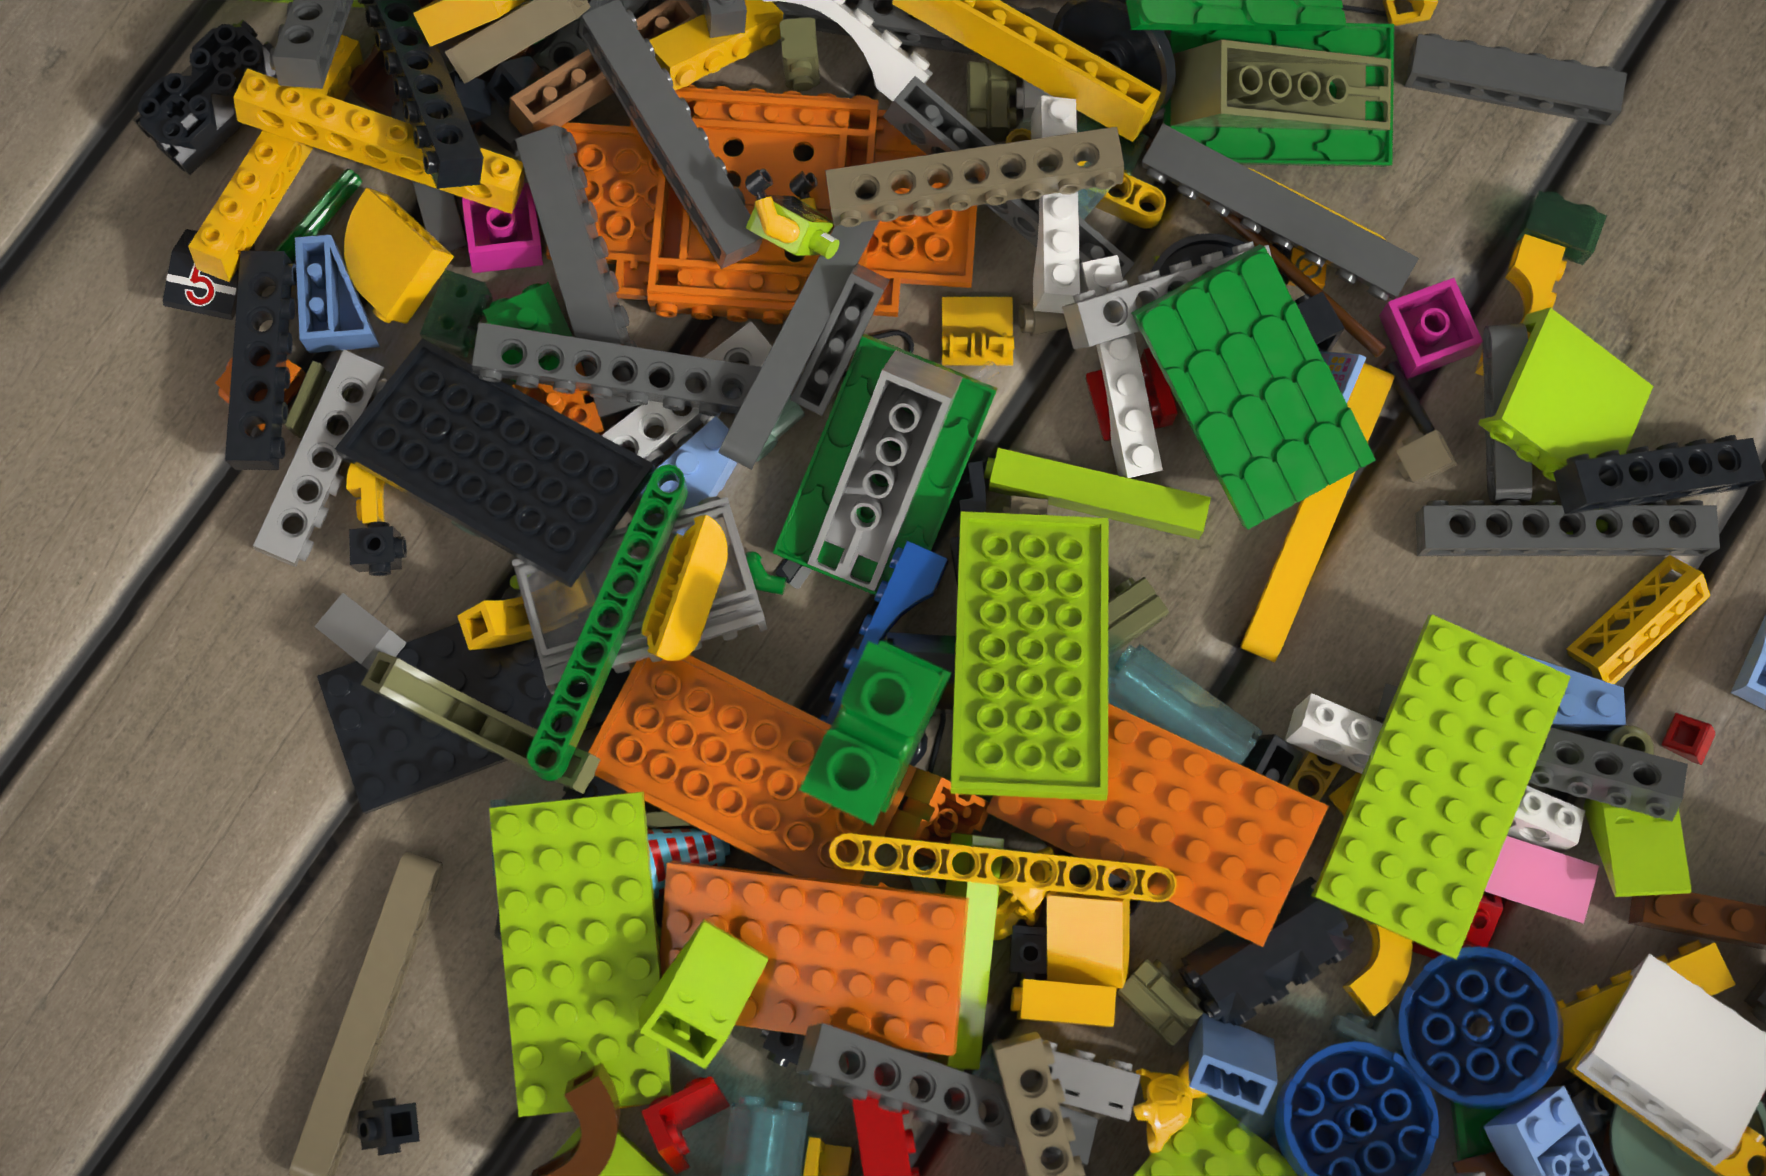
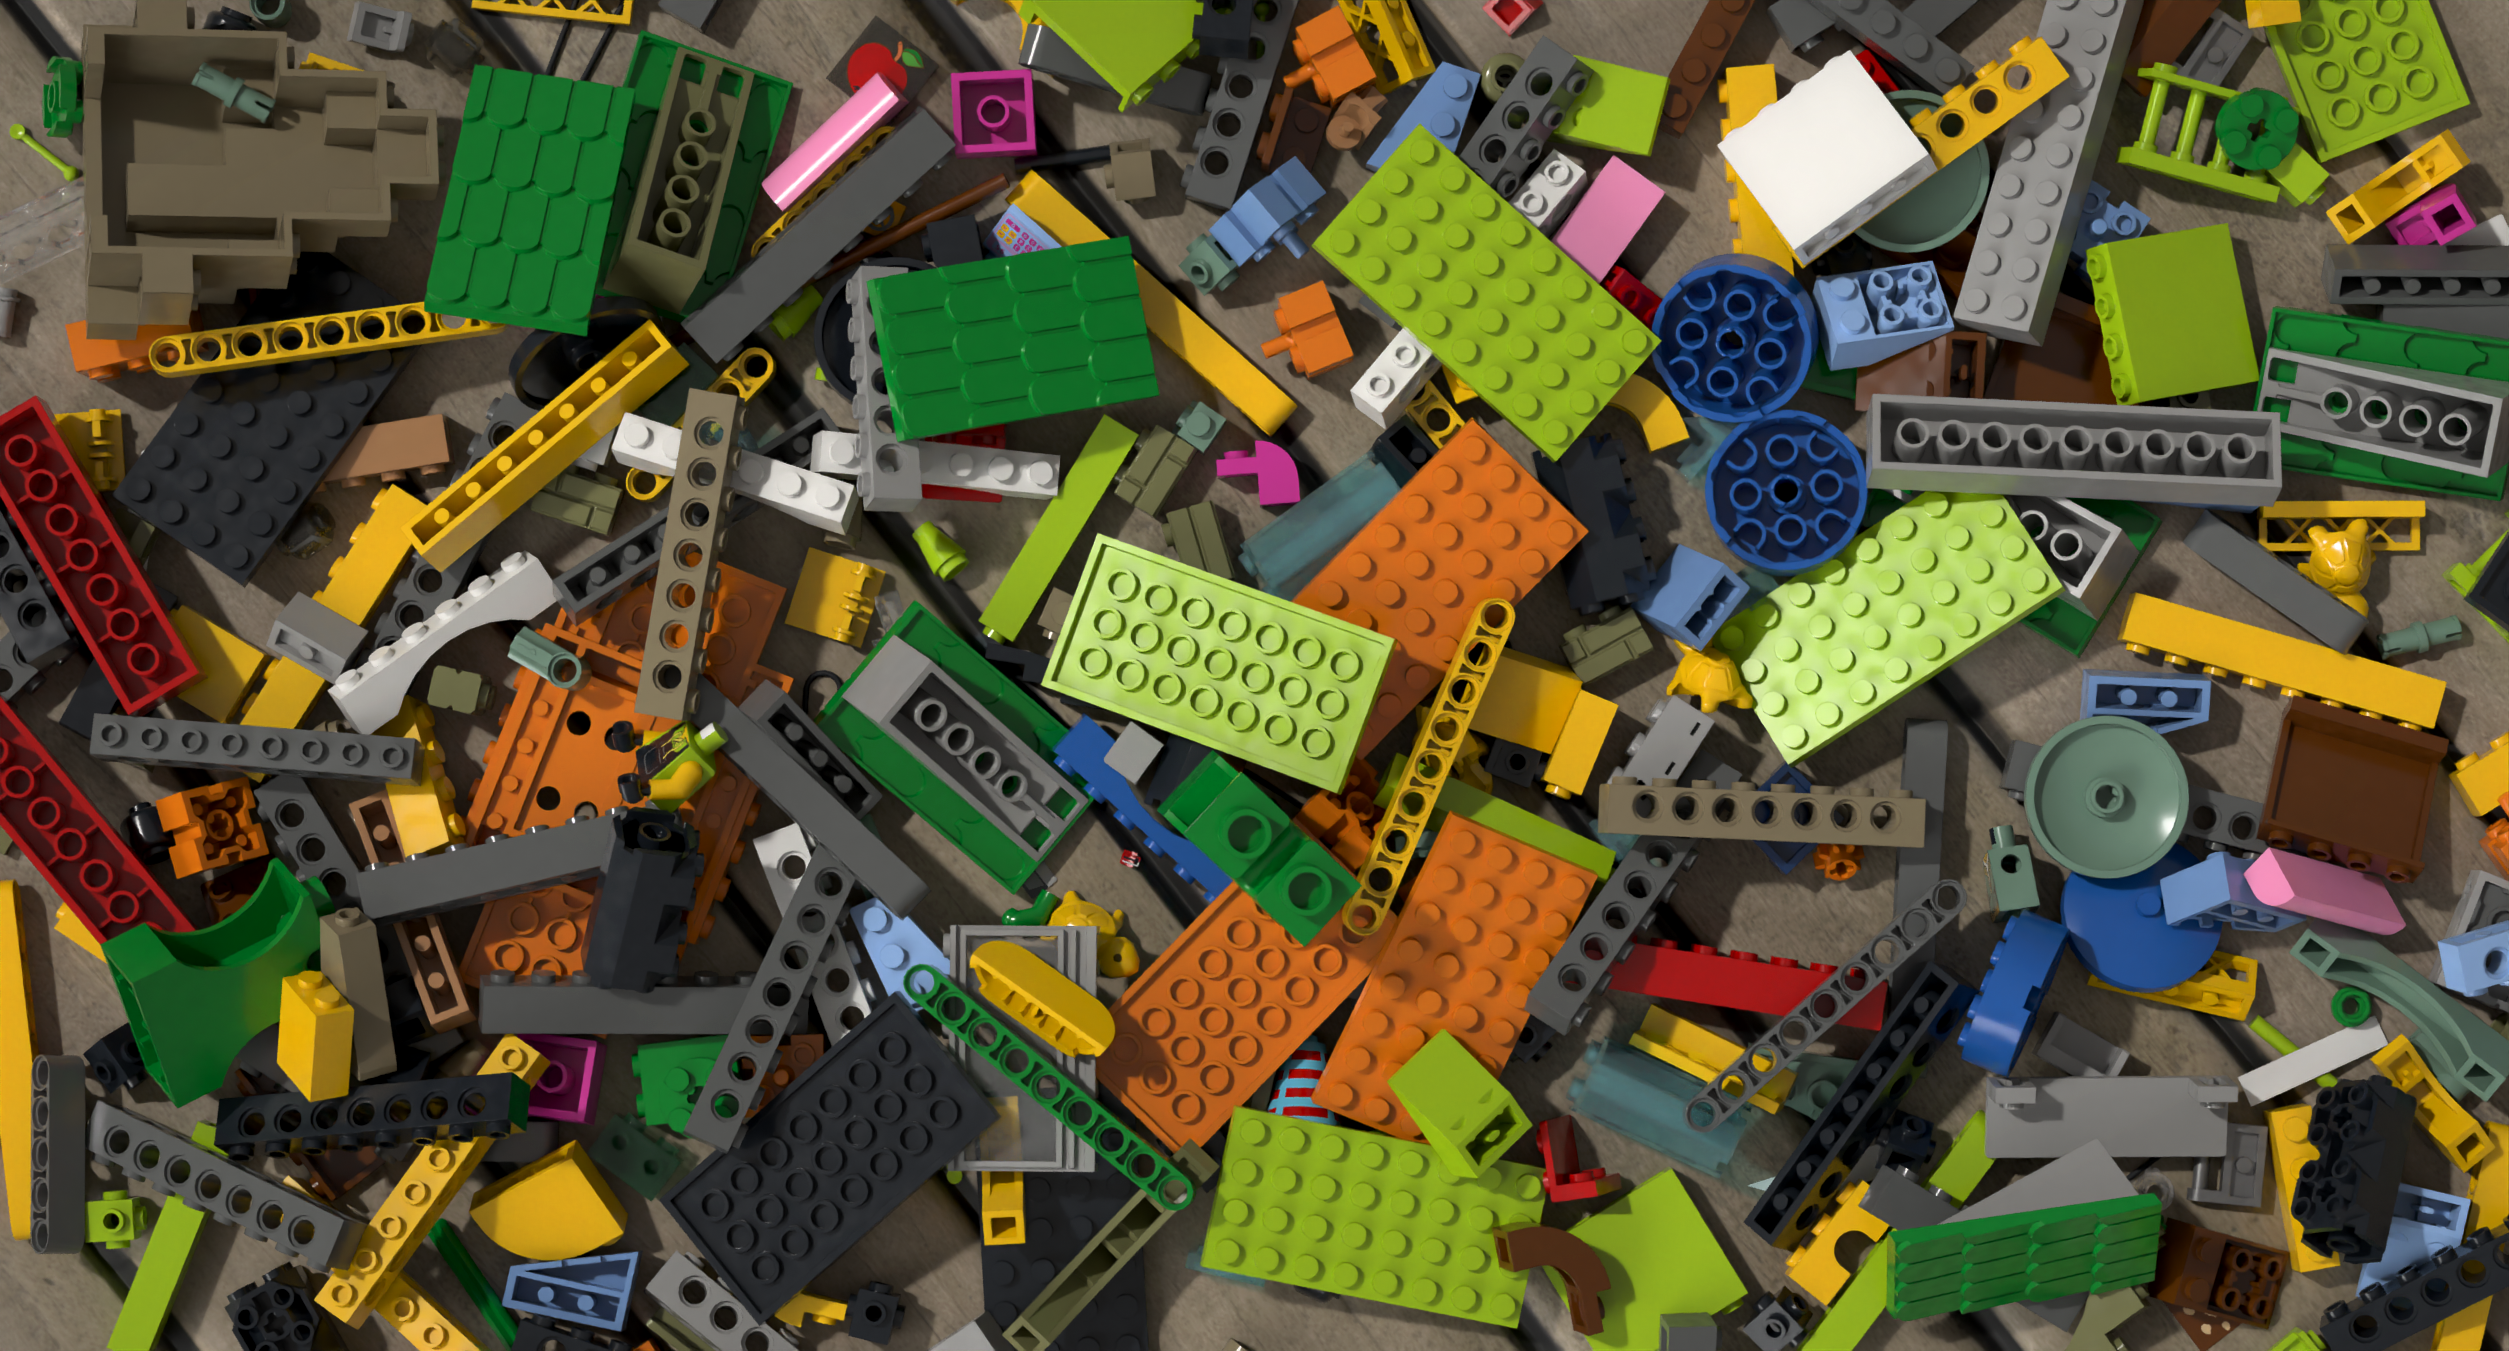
camera: 75 degrees left, 10 degrees up
(667, 226) = (640, 901): none -> black brick
(746, 650) = (1116, 954): none -> yellow animal
(835, 643) = (1129, 858): none -> red piece
(847, 106) = (548, 659): none -> sand green piece
(927, 611) = (1133, 753): none -> light grey panel
(1044, 404) = (941, 552): none -> lime cone
(1176, 557) = (1154, 470): none -> olive brick
(1200, 219) = (792, 318): none -> lime cone
(1214, 655) = (1275, 470): none -> dark pink brick
(1227, 584) = (1199, 426): none -> sand green brick
(1344, 648) = (1309, 332): none -> orange brick
(1375, 550) = (1208, 266): none -> sand green brick
(1381, 215) = (834, 140): none -> bright pink brick
(1430, 231) = (887, 52): none -> tile
(1436, 578) = (1270, 214): none -> medium blue brick
(1505, 581) = (1295, 132): none -> reddish brown bracket
(1543, 630) = (1355, 119): none -> medium nougat hips
(1586, 592) = (1330, 59): none -> orange brick

